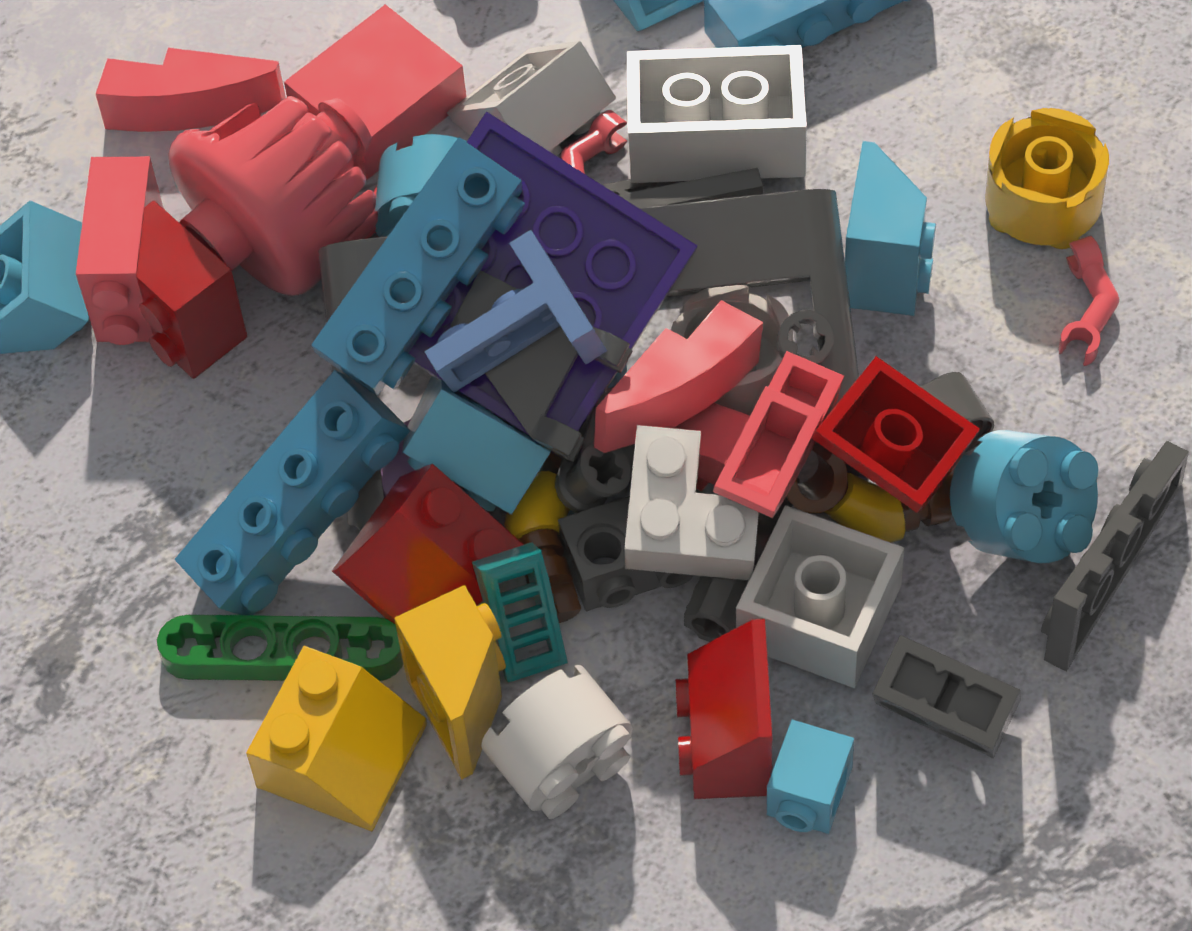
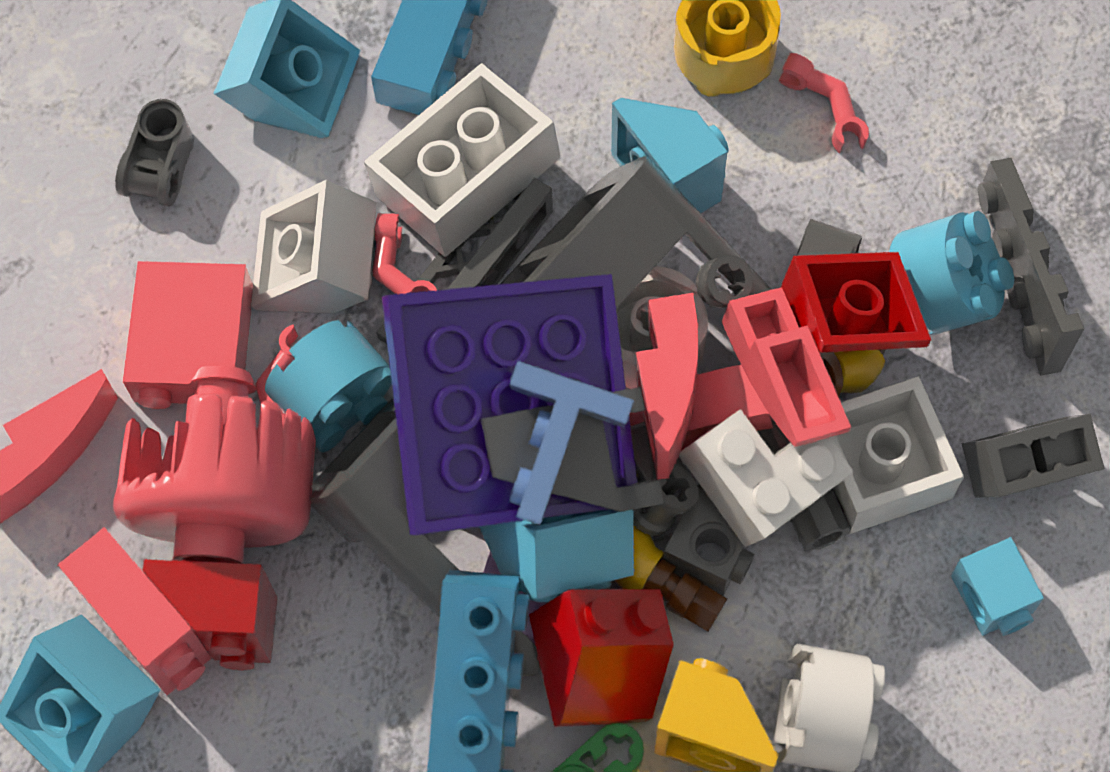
camera: 45 degrees left, 10 degrees up
(419, 267) = (447, 455): dark azure brick -> none
(507, 566) = (680, 619): teal slope -> none
(728, 715) = (914, 588): red slope -> none

